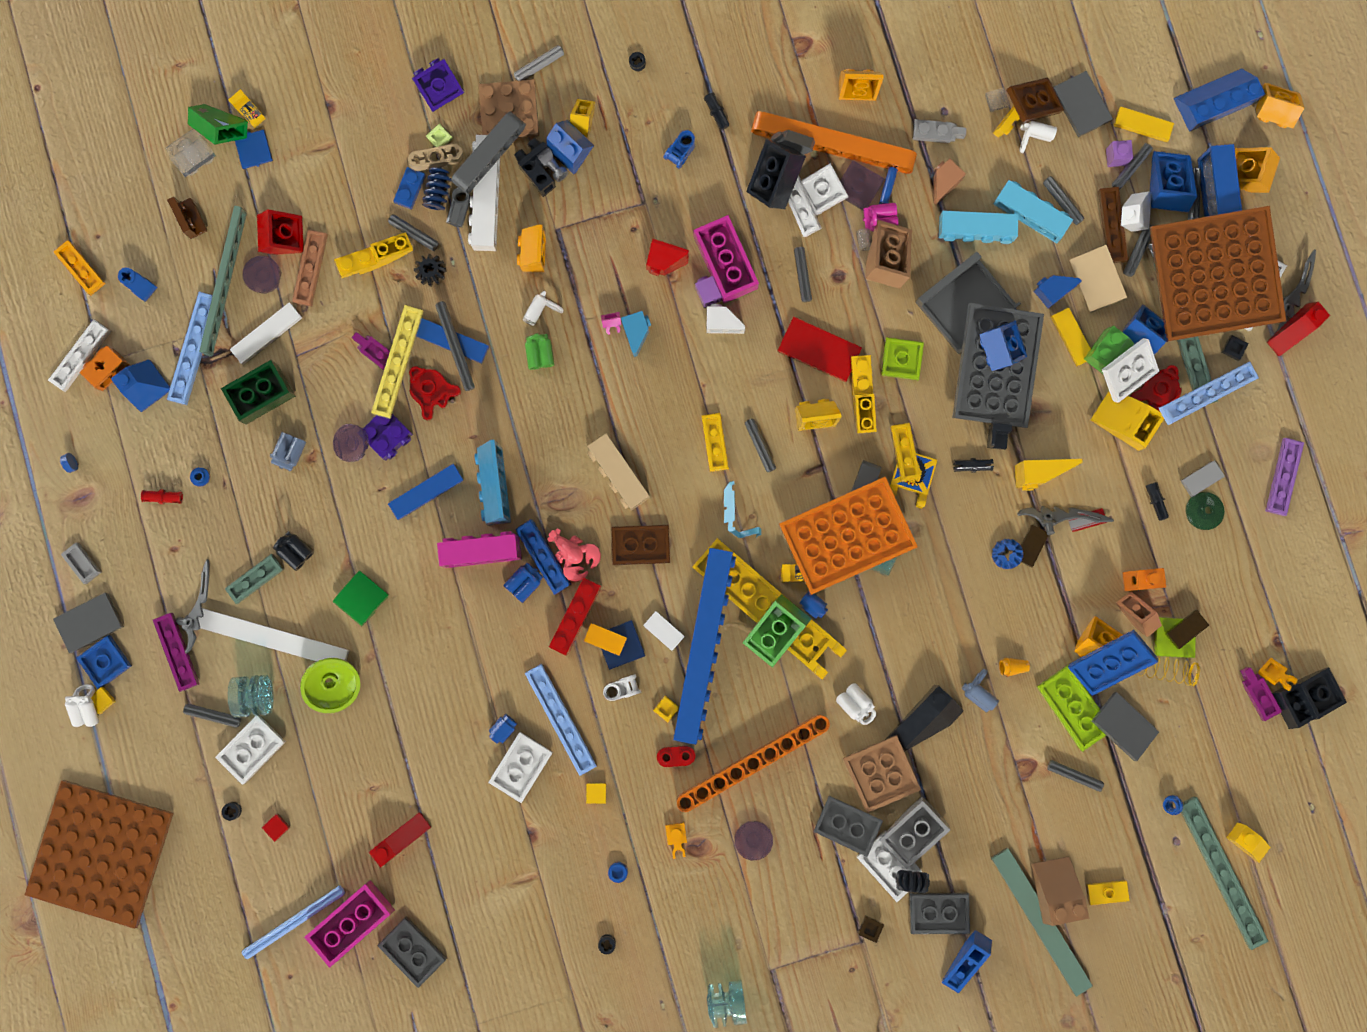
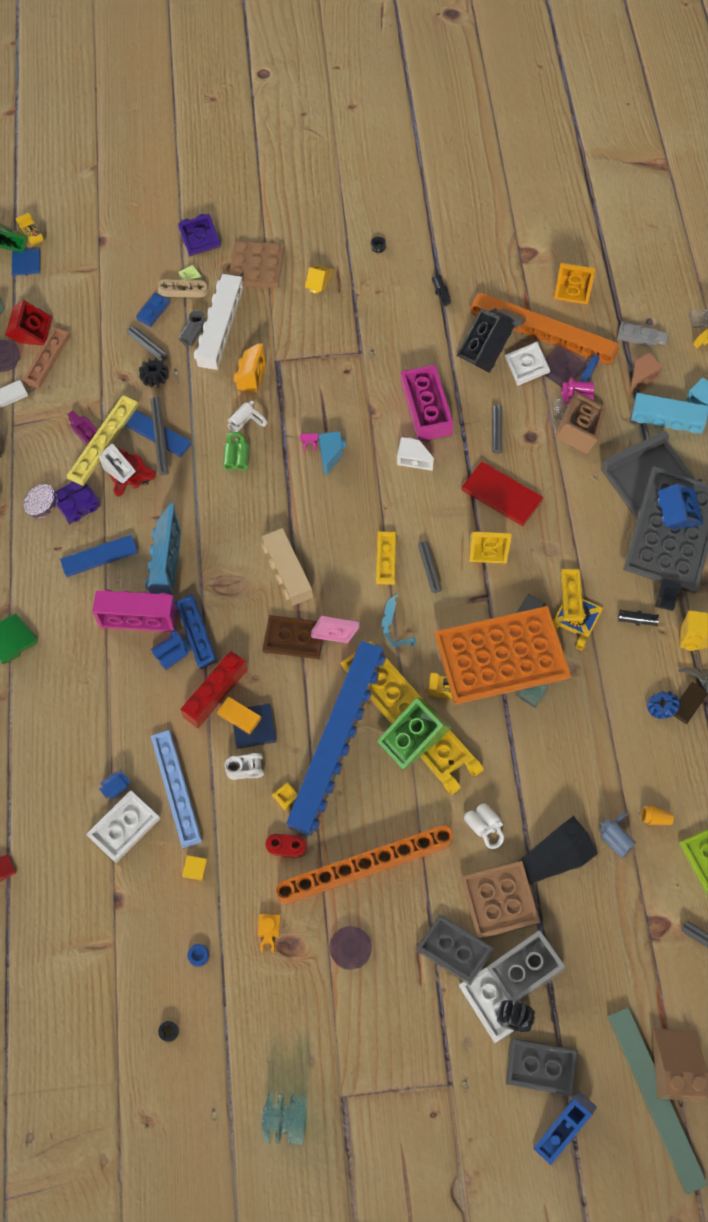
camera: 10 degrees right, 20 degrees down
(375, 256) = (110, 355): yellow slope -> none
(420, 390) = (116, 464): none -> white slope
(435, 189) = (177, 311): dark blue piece -> none
(488, 152) = (229, 285): dark grey beam -> none
(536, 162) = (268, 307): black hips -> none
(538, 63) = (291, 233): light grey axle -> none
(568, 145) = (301, 293): blue slope -> none
(574, 554) = (226, 632): coral animal -> none
(663, 631) = (300, 720): white tile -> none
(665, 258) = (371, 392): red slope -> none
(678, 151) = (403, 312): blue piece -> none
(682, 537) = (334, 629): none -> bright pink tile
(707, 291) = (404, 426): medium lavender brick -> none
(803, 210) = (506, 376): white tile -> none
(813, 605) = (457, 720): blue brick -> none
(863, 394) = (538, 535): yellow slope -> none
(870, 929) = (461, 1068): dark brown plate -> none
(902, 358) = (581, 514): lime tile -> none

